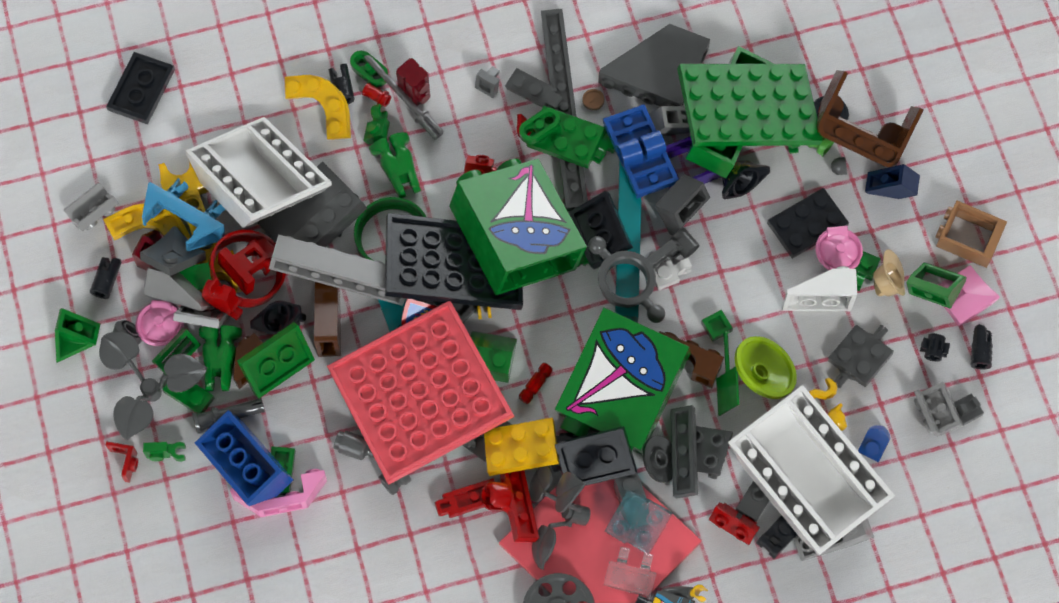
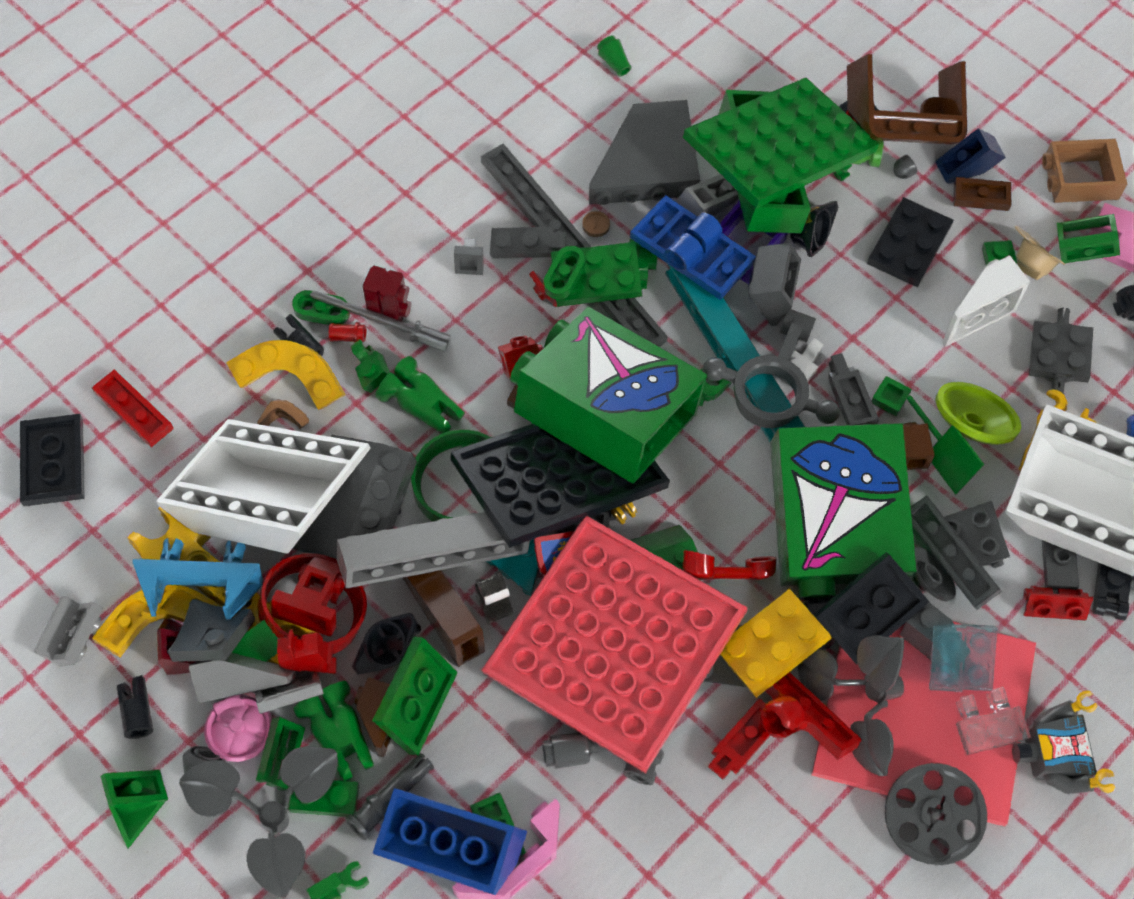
camera: 30 degrees left, 5 degrees down
(209, 78) = (132, 408): none -> red plate
(301, 125) = (283, 409): none -> medium nougat hair
(364, 323) = (493, 597): none -> clear smoke leg
(503, 373) = (702, 567): none -> red piece
(535, 383) = (734, 558): red axle -> none
(600, 219) = (697, 341): black plate -> none
(689, 311) = (851, 393): none -> dark grey hinge
(839, 248) = (964, 250): bright pink piece -> none
(883, 213) = (982, 194): none -> reddish brown plate

